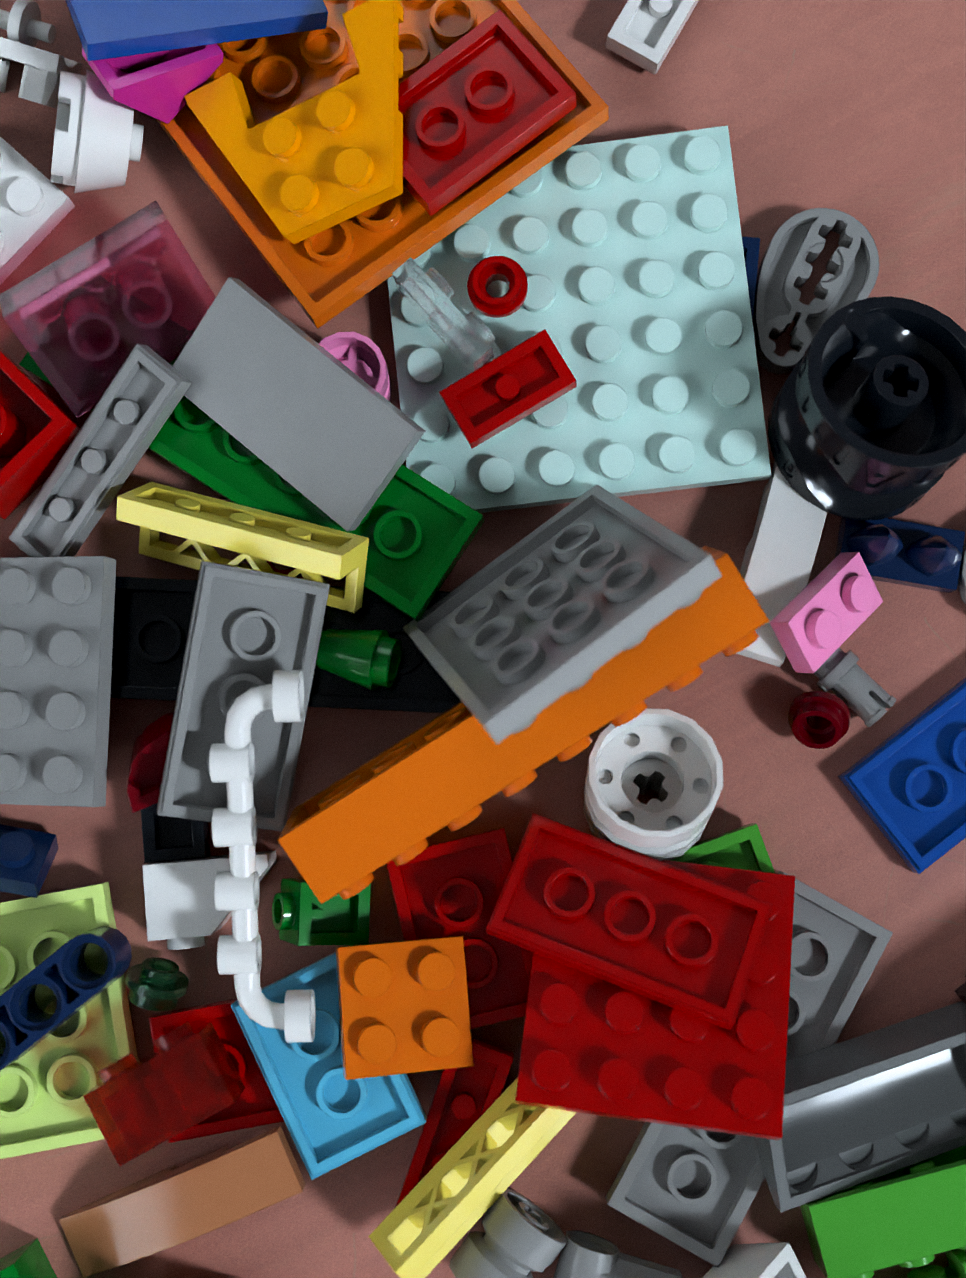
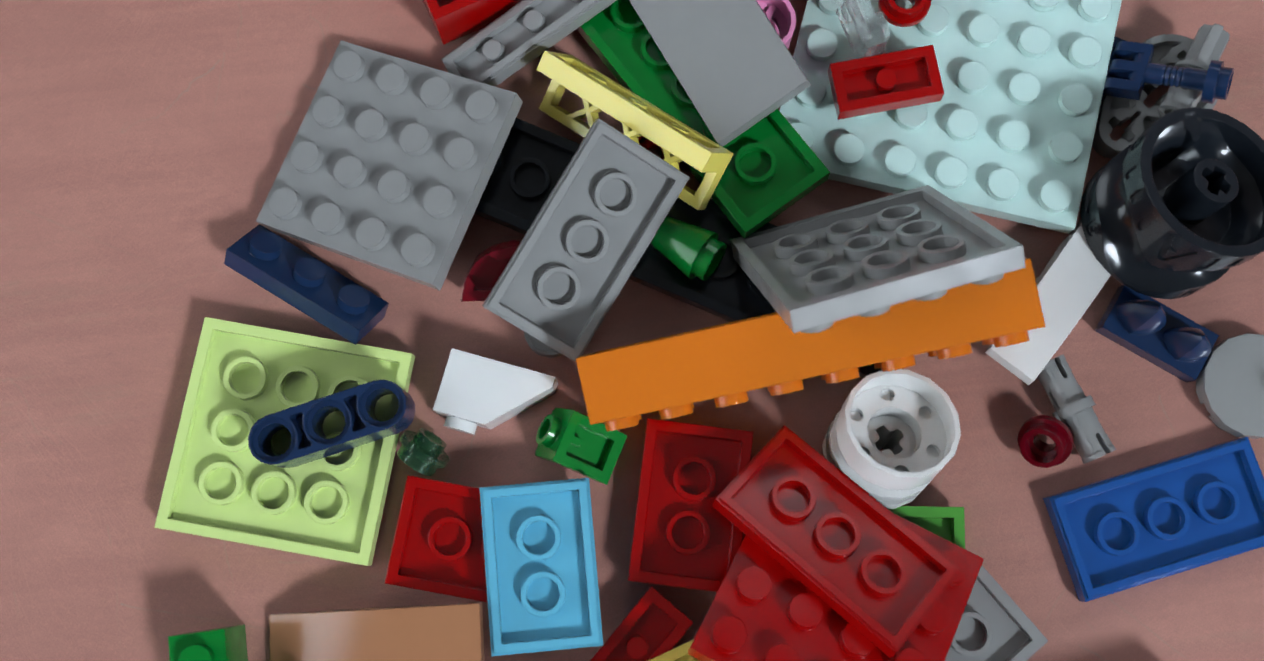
camera: 20 degrees right, 5 degrees down
(164, 1092) = (399, 535): clear red brick -> none
(173, 837) = (484, 333): black plate -> none
(237, 829) = (526, 389): white bar -> none
(403, 1007) = (621, 541): orange plate -> none
(826, 612) = (1083, 354): bright pink plate -> none
(843, 248) = (1206, 46): none -> light grey axle
(864, 259) = (1213, 83): none -> dark blue hinge

